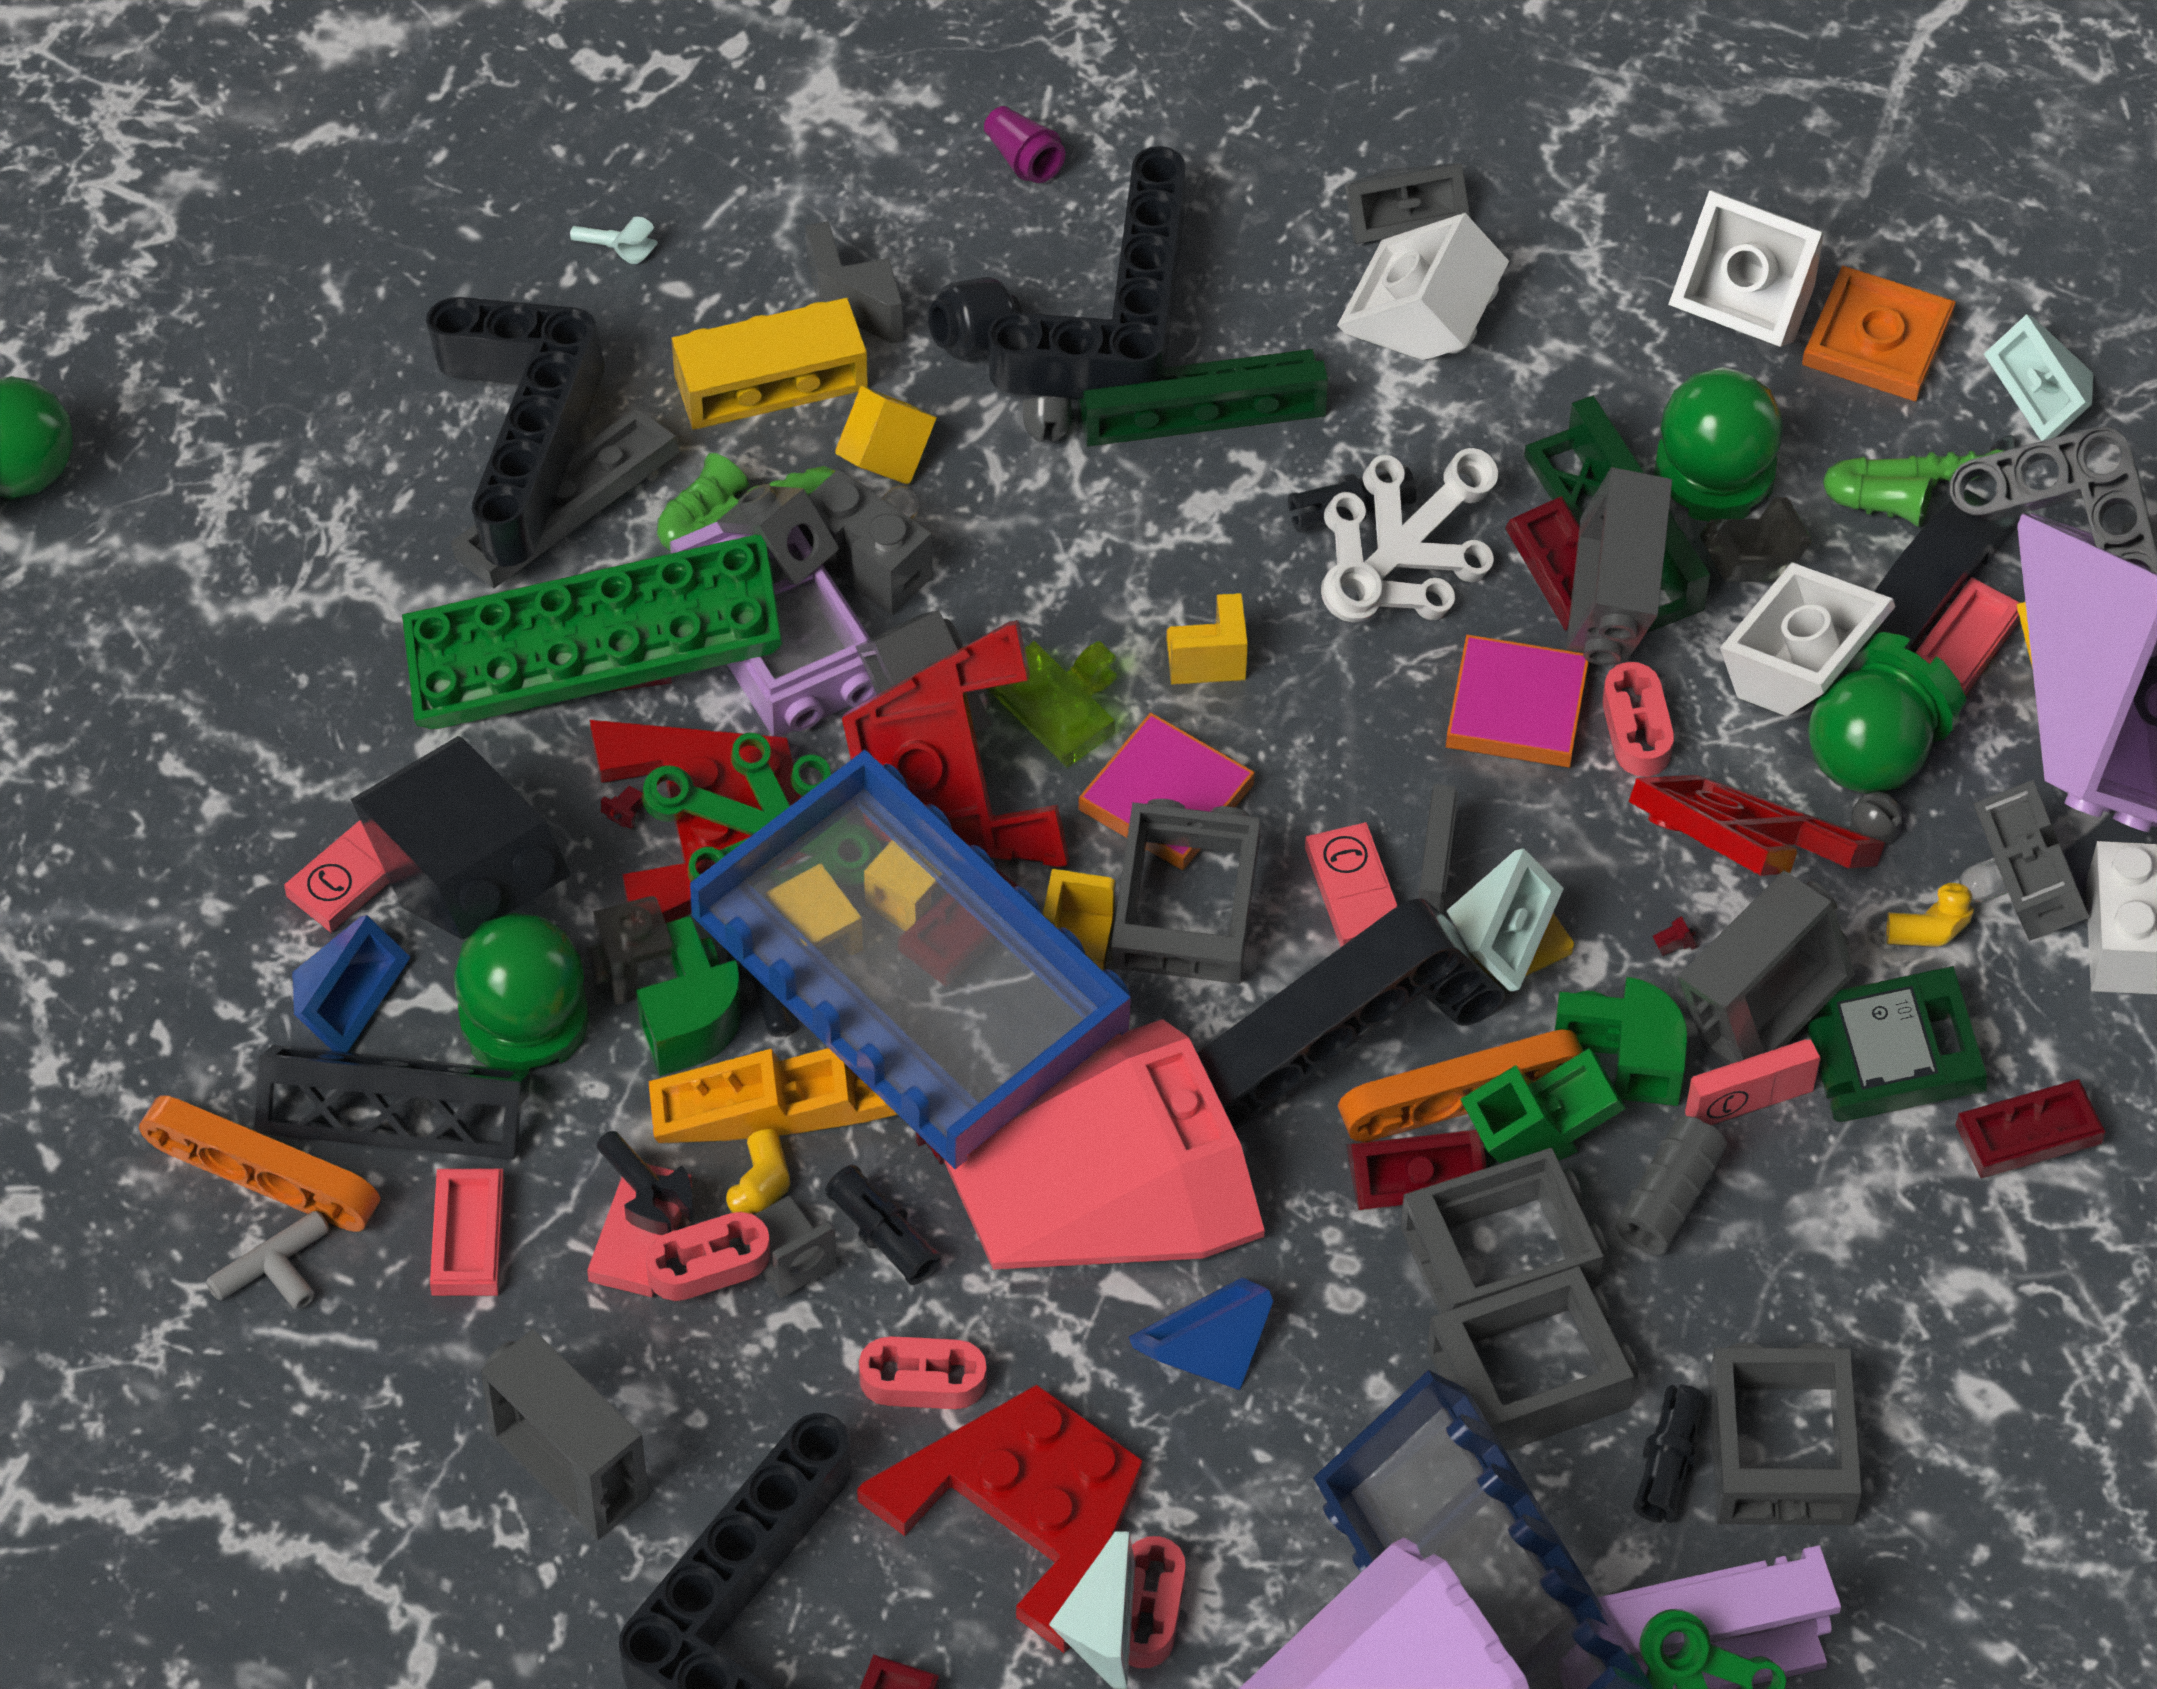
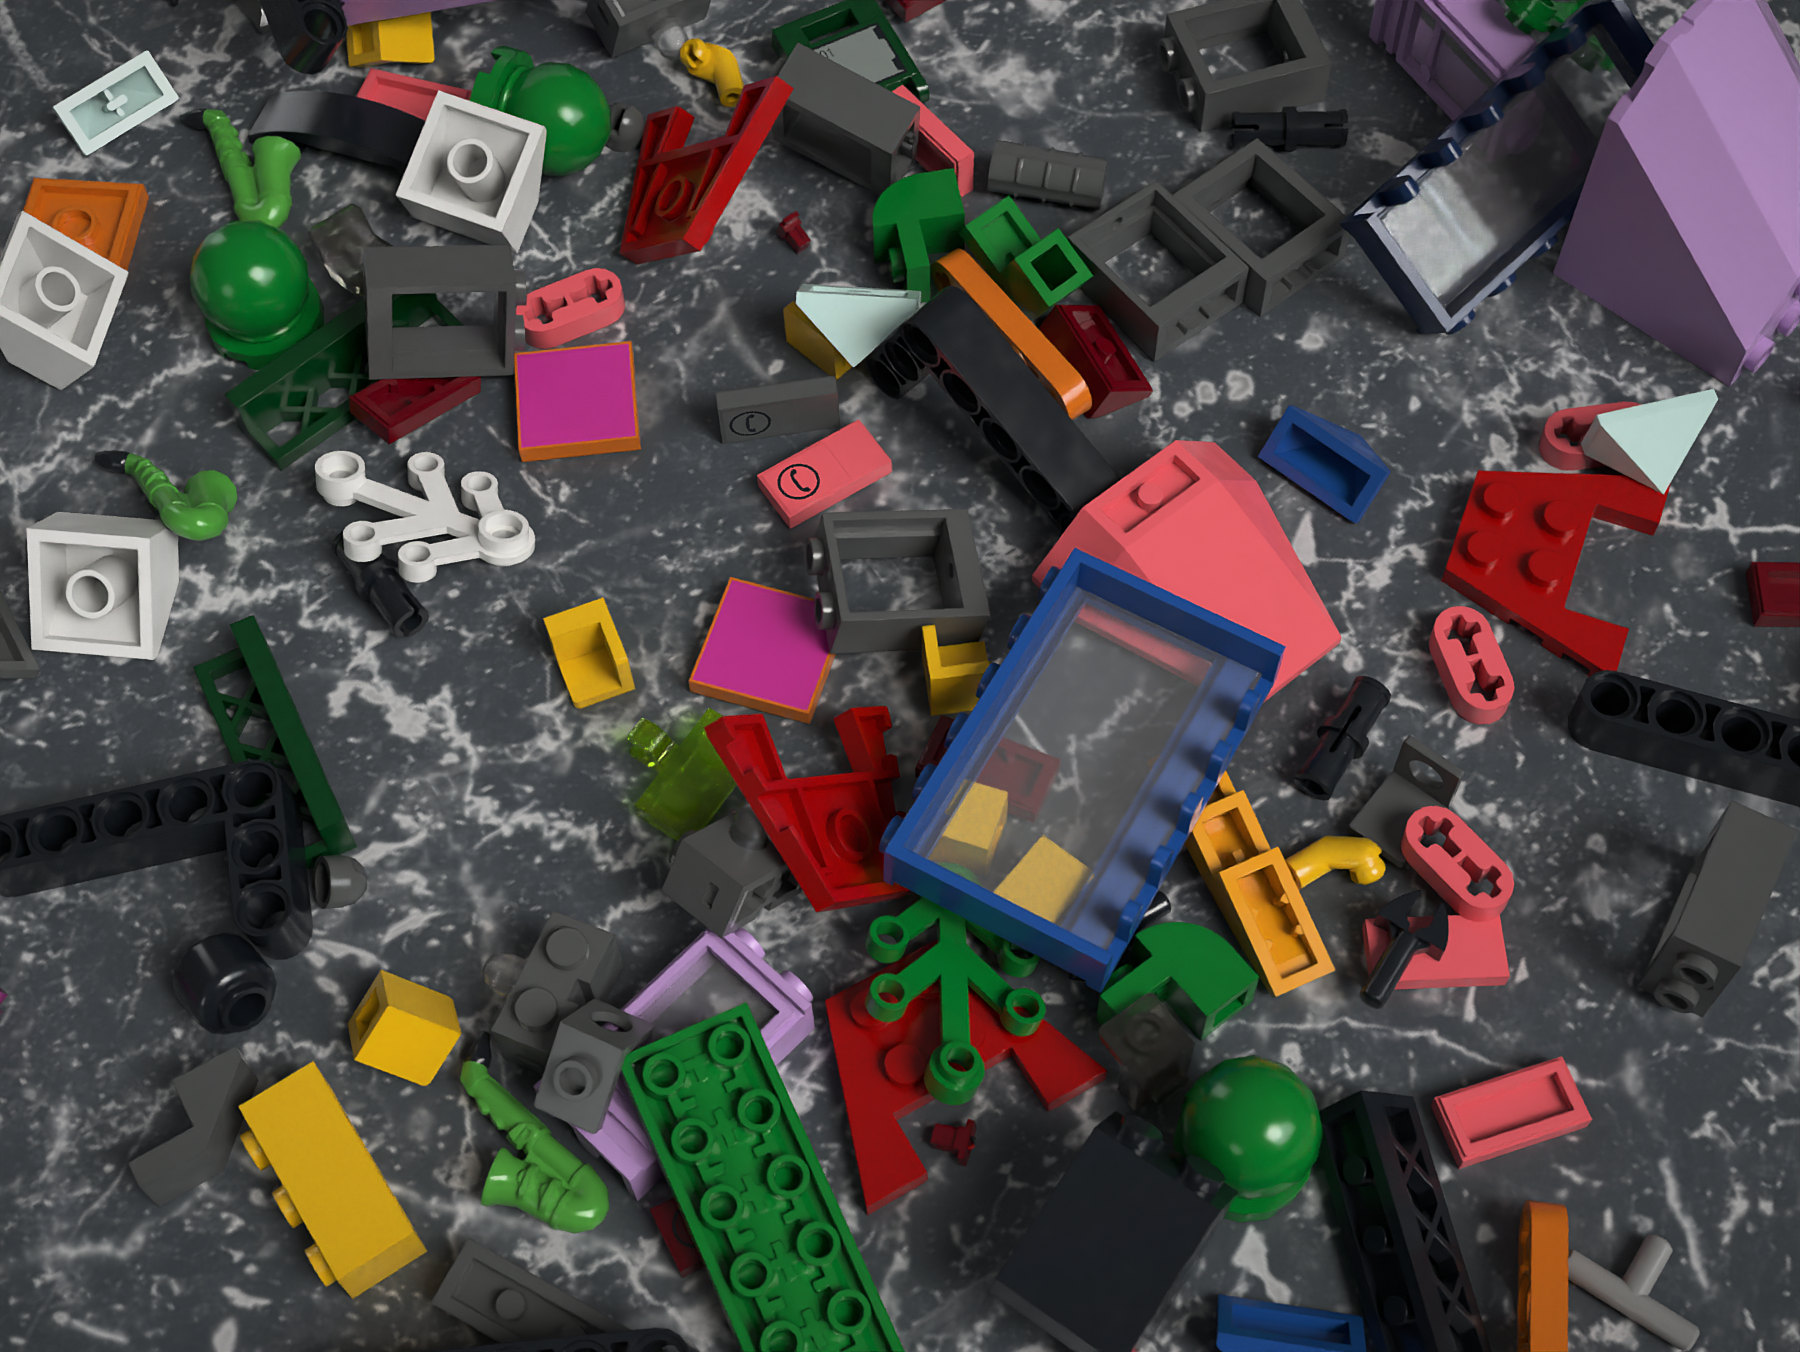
camera: 105 degrees left, 5 degrees up
(1469, 353) = (196, 513): none -> bright green piece

